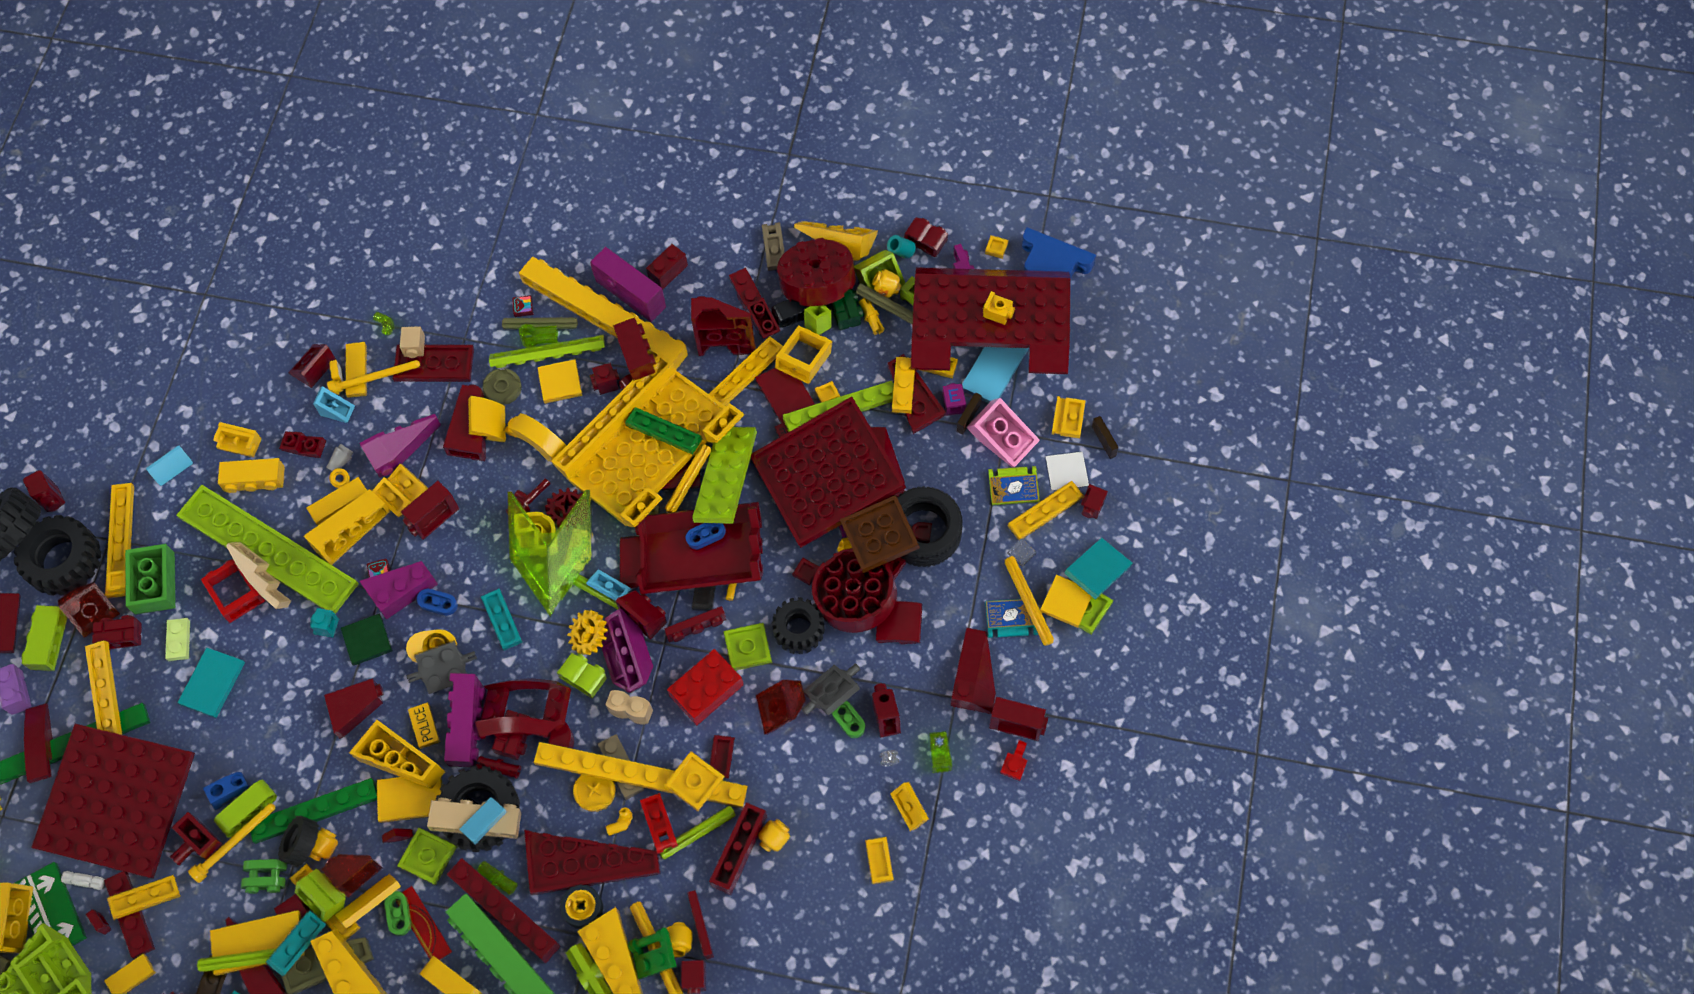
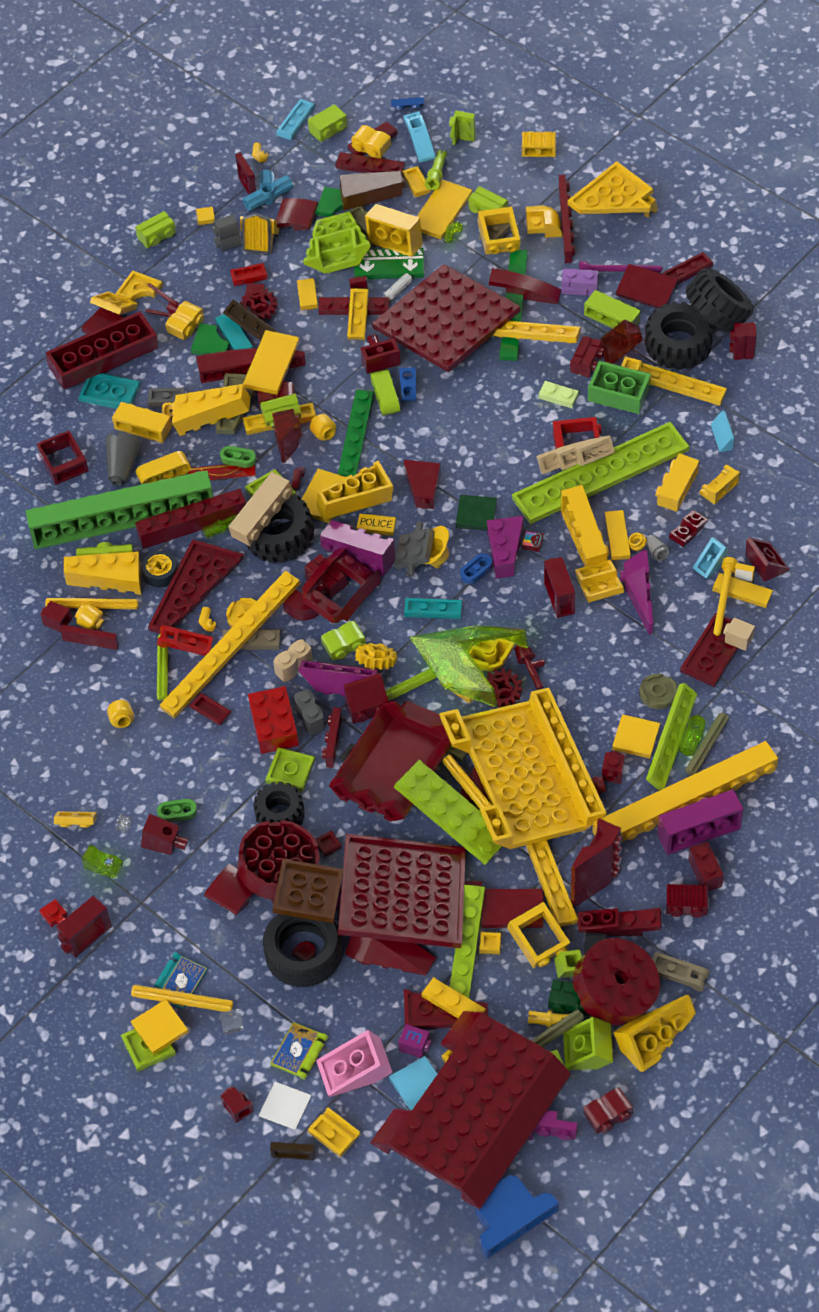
camera: 120 degrees right, 10 degrees down
(199, 871) = (355, 353): yellow piece -> none
(211, 682) = (506, 404): teal tile -> none
(234, 960) = (261, 347): lime axle -> none
(254, 883) = (324, 387): bright green brick -> none
(295, 943) = (250, 379): teal tile -> none
(298, 841) = (331, 410): black tyre -> none
(321, 620) = (507, 482): teal brick -> none
(367, 901) = (258, 439): yellow tile -> none
(386, 321) = (778, 628): clear neon green arm -> none
(458, 440) = (630, 648): dark red slope -> none
(483, 820) = (250, 506): medium azure slope -> none
(487, 419) = (624, 661): yellow slope -> none
(505, 768) = (306, 557): dark red pin -> none
(522, 306) = (735, 738): tile -> none
(536, 435) = (581, 687): yellow arch -> none
(608, 585) = (407, 688): medium azure slope -> none
(635, 348) = (619, 789): dark red brick -> none
(656, 960) = (88, 594): green plate -> none
(663, 430) = (526, 783): green tile -> none
(683, 655) = (309, 712): none -> dark grey brick
(694, 781) = (198, 674): yellow tile -> none
(705, 267) = (686, 900): none -> dark red brick
(706, 535) = (399, 769): blue plate -> none
(738, 848) = (126, 683): dark red brick -> none
(780, 704) = (221, 767): clear red slope -> none
(831, 689) = (207, 805): dark grey plate -> none
(879, 860) = (51, 780): yellow tile -> none
(886, 283) = (568, 1038): yellow head -> none
(901, 246) = (606, 1077): teal brick -> none
(969, 413) = (391, 1046): dark brown tile -> none
(974, 678) = (144, 919): dark red wedge -> none
(996, 247) = (561, 1174): yellow tile -> none
(998, 308) = (461, 1101): yellow brick -> none
(1045, 510) = (257, 1062): yellow tile -> none
(1098, 568) = (170, 1069): teal tile -> none

